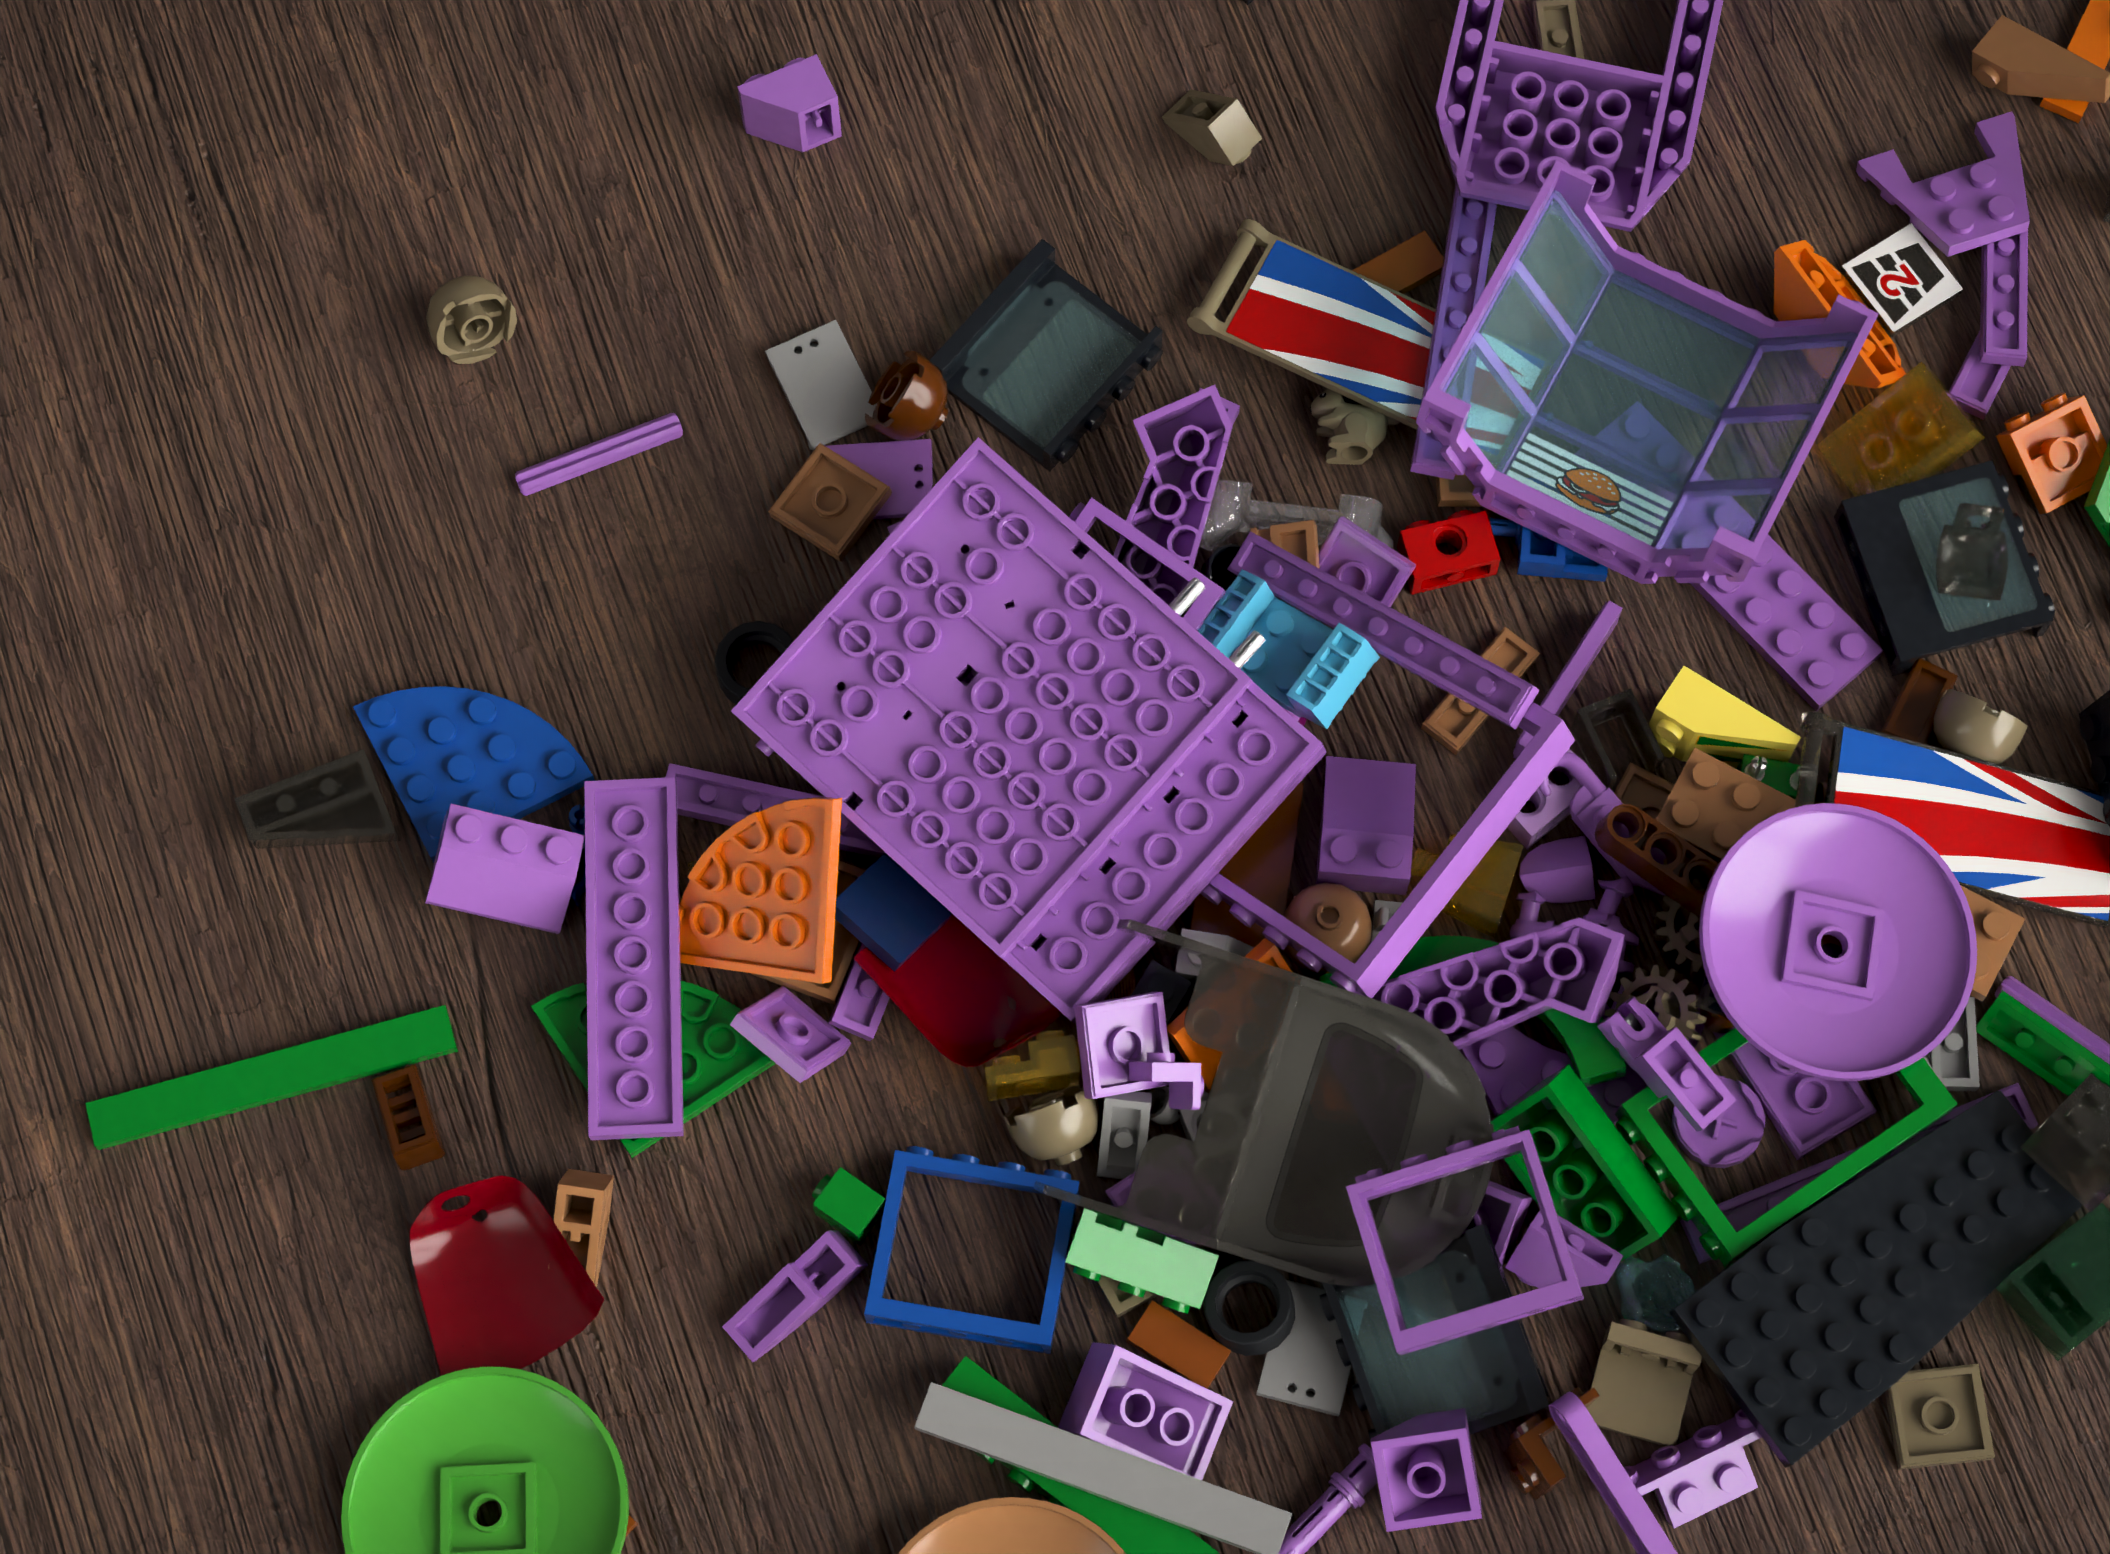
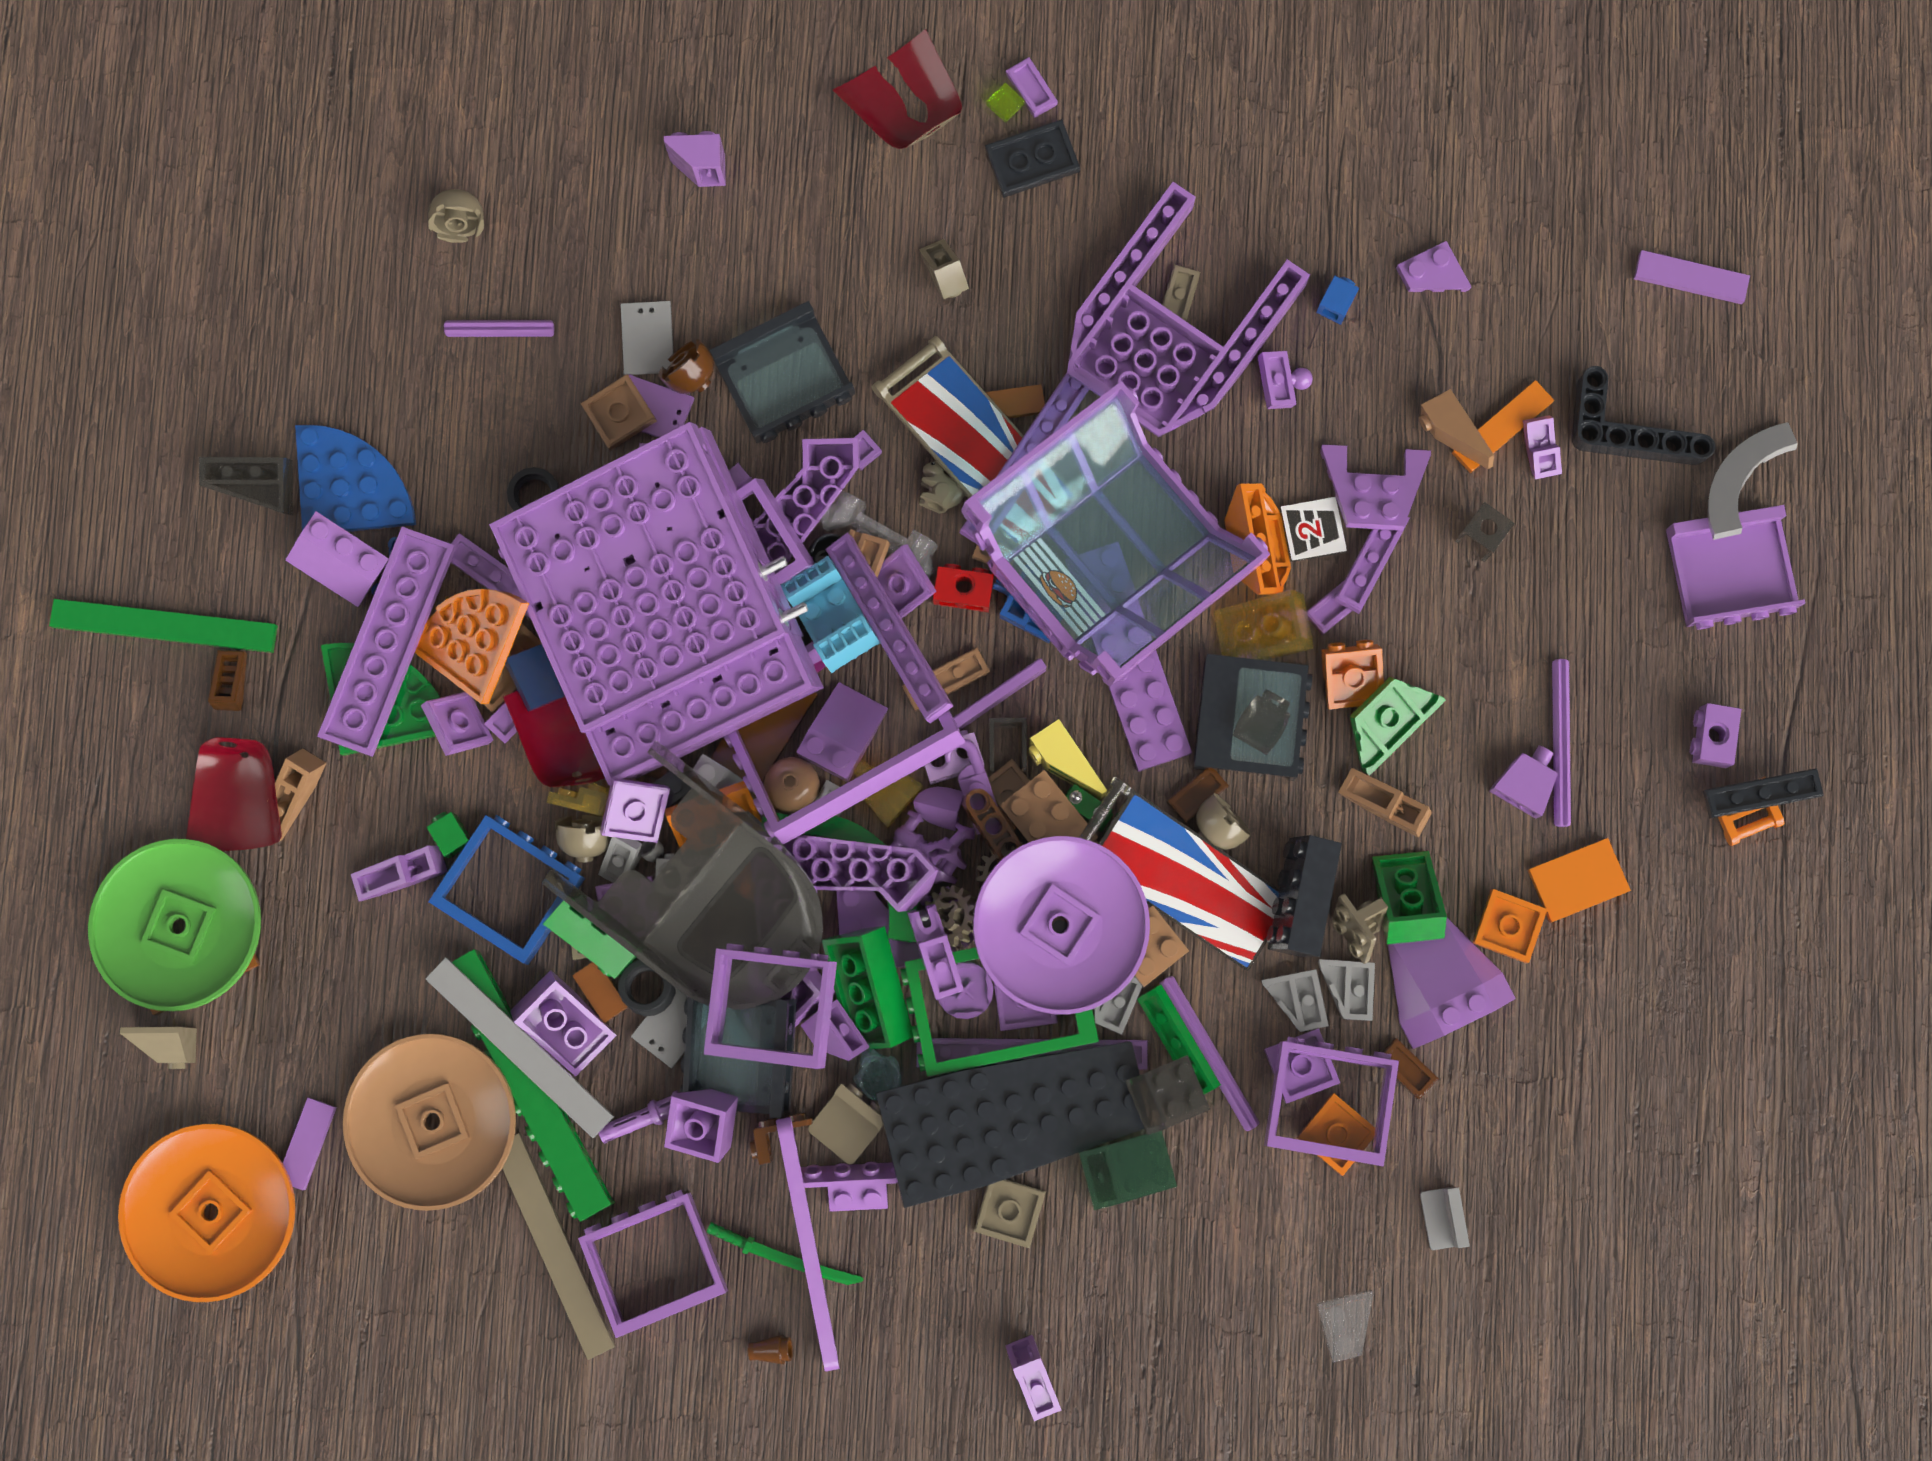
camera: 25 degrees right, 10 degrees up
(1184, 1078) = (651, 835): medium lavender bracket -> none
(1757, 100) = (1278, 380): none -> medium lavender plate

